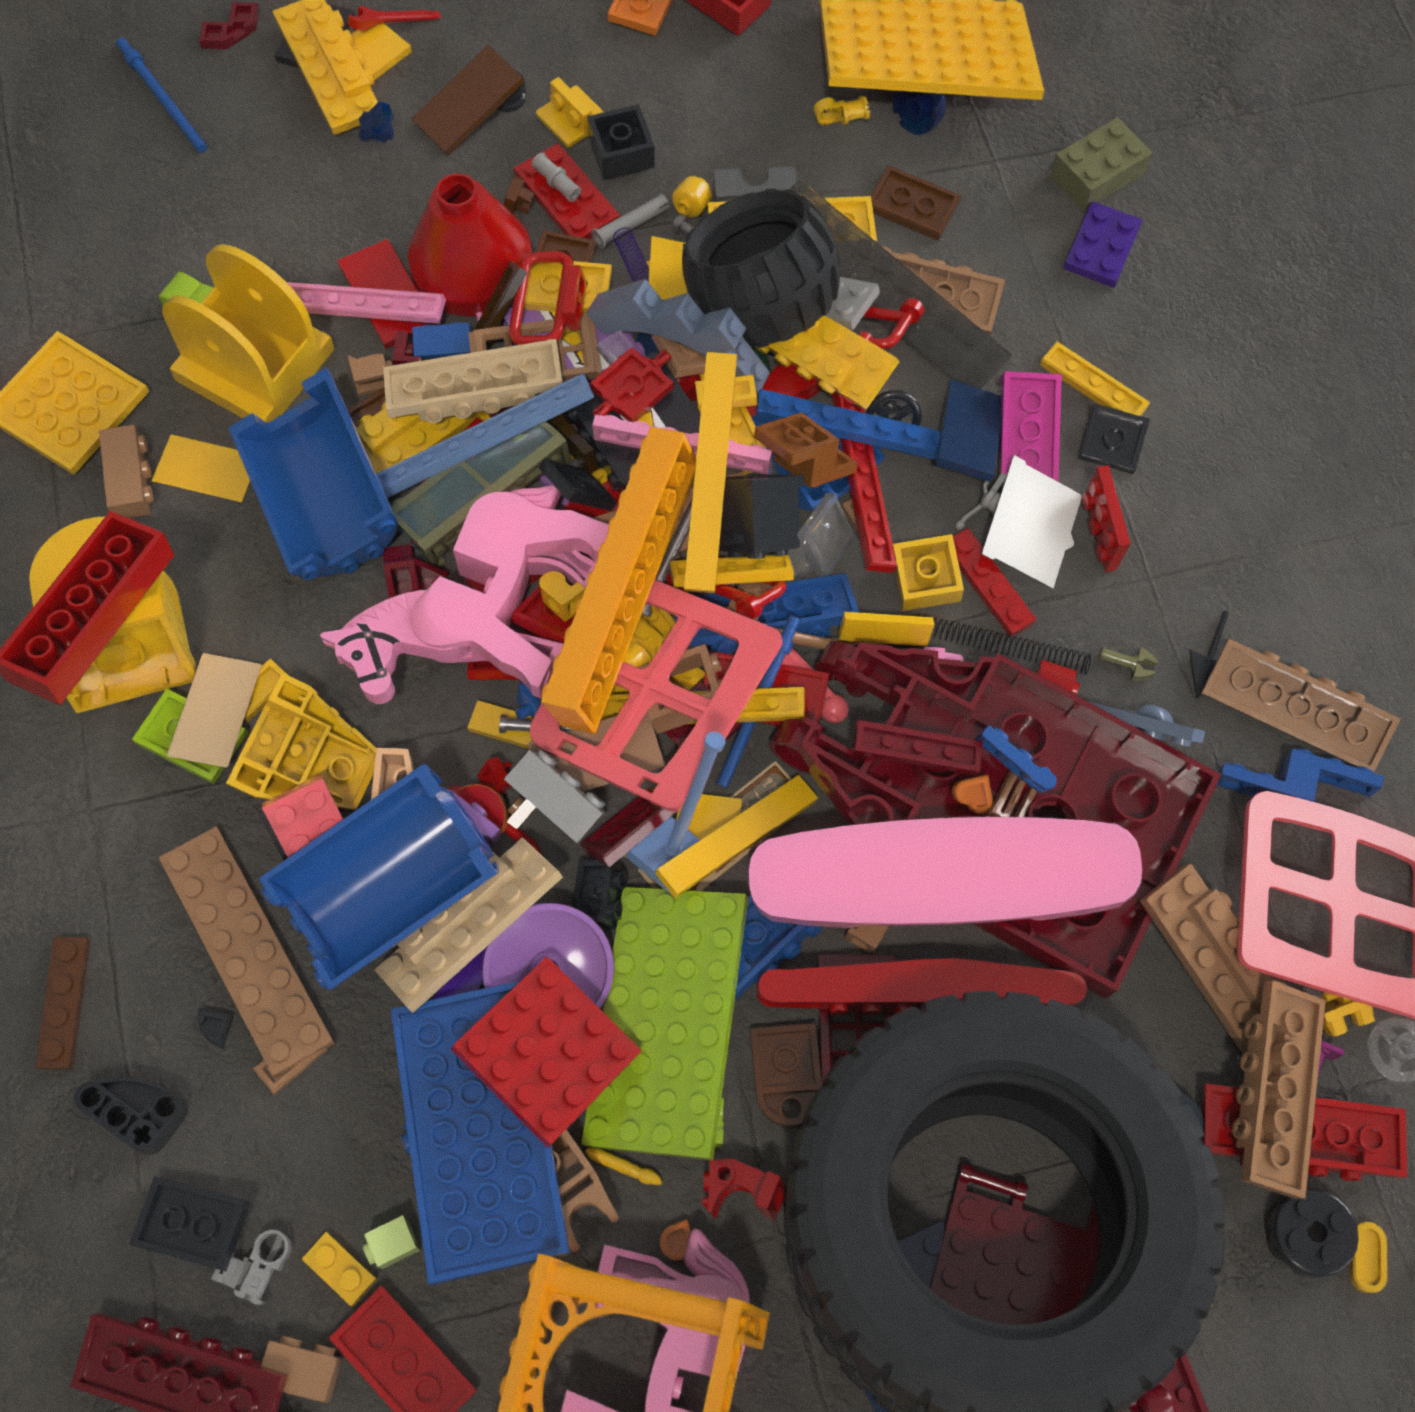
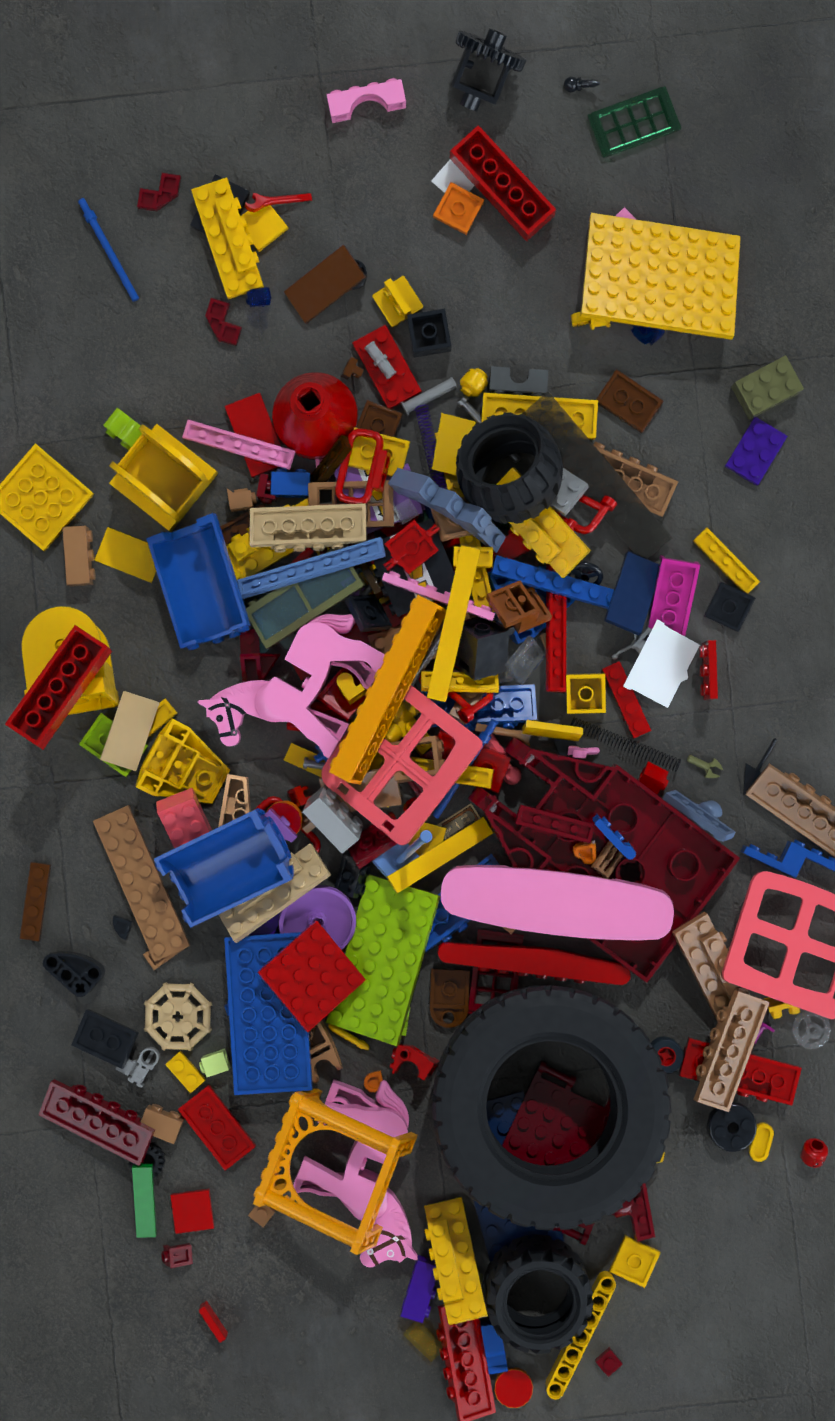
camera: 10 degrees right, 20 degrees up
(305, 1184) = (169, 1024): none -> tan plate
(329, 173) = (216, 316): none -> dark red tile

